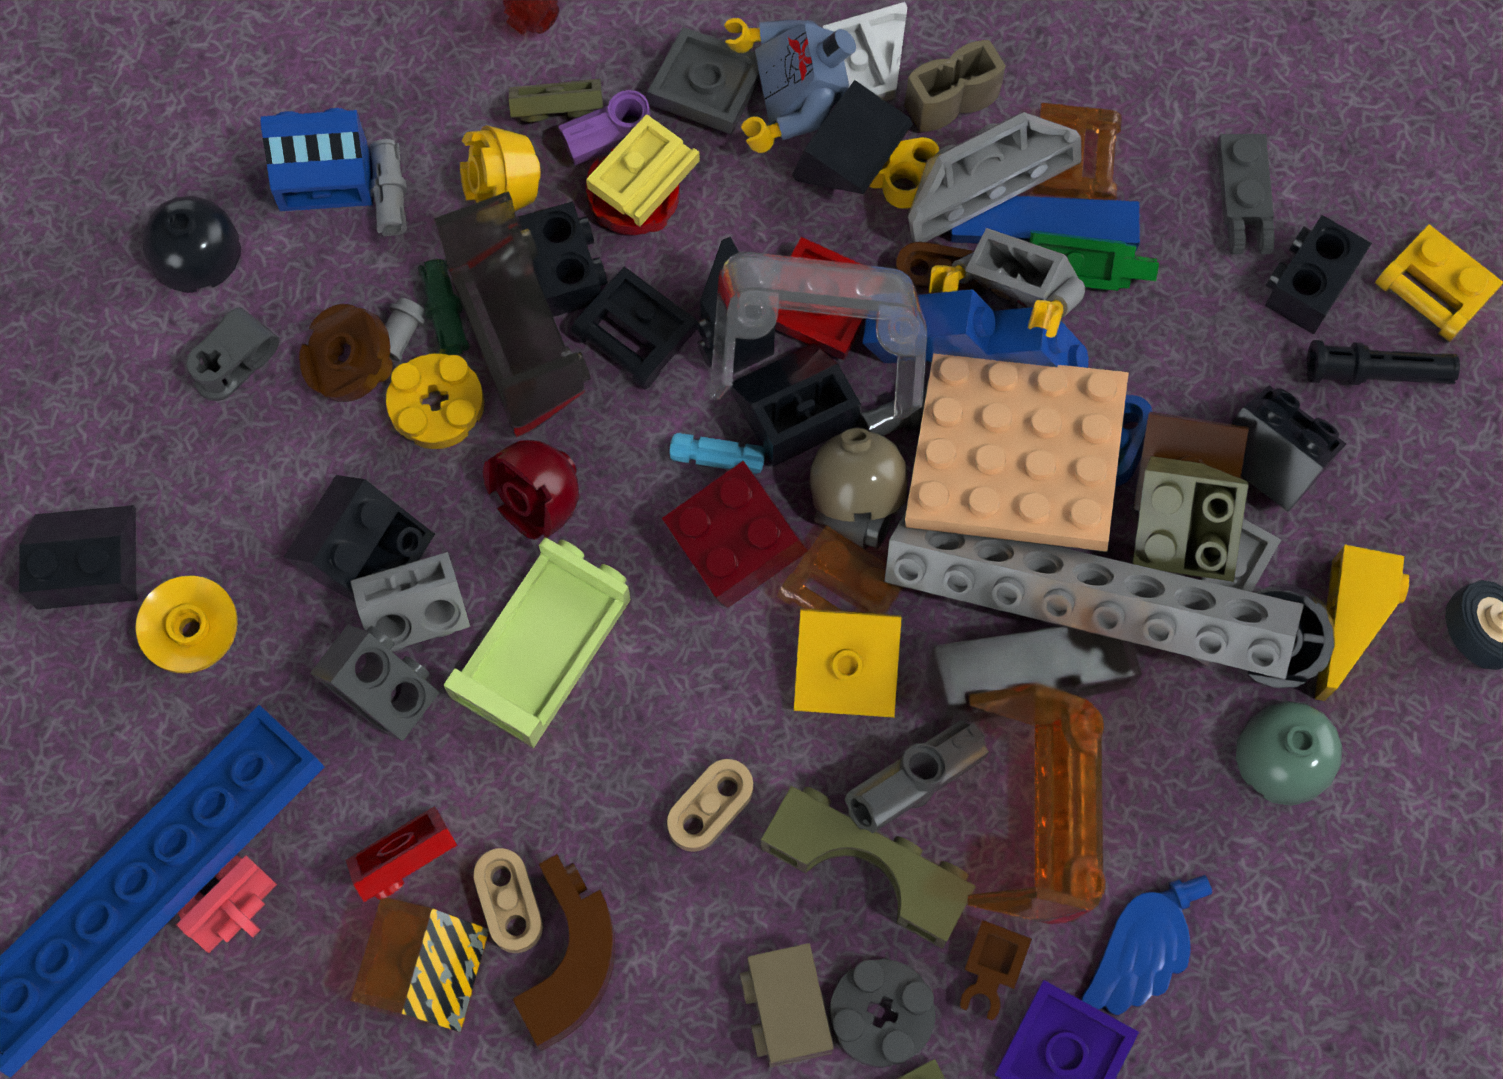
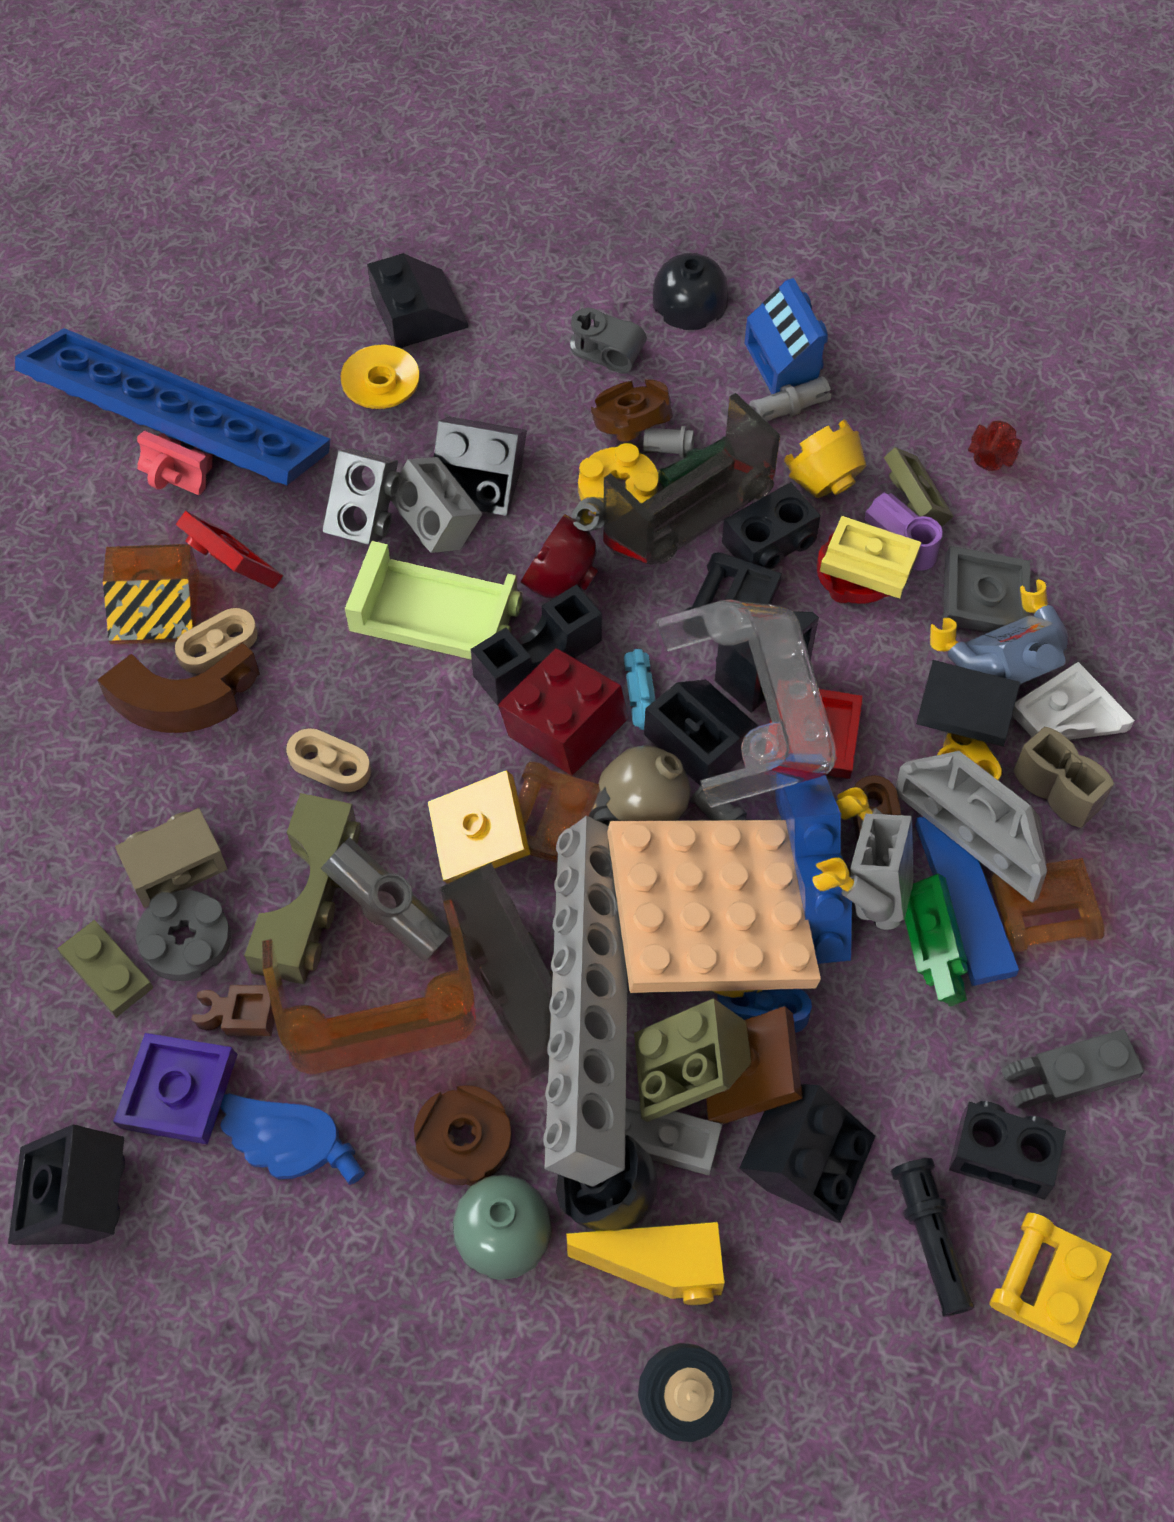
camera: 75 degrees right, 10 degrees down
(497, 431) = (588, 522): none -> dark grey pin
(640, 541) = (566, 623): none -> black arch
(1216, 765) = (453, 1110): none -> reddish brown plate

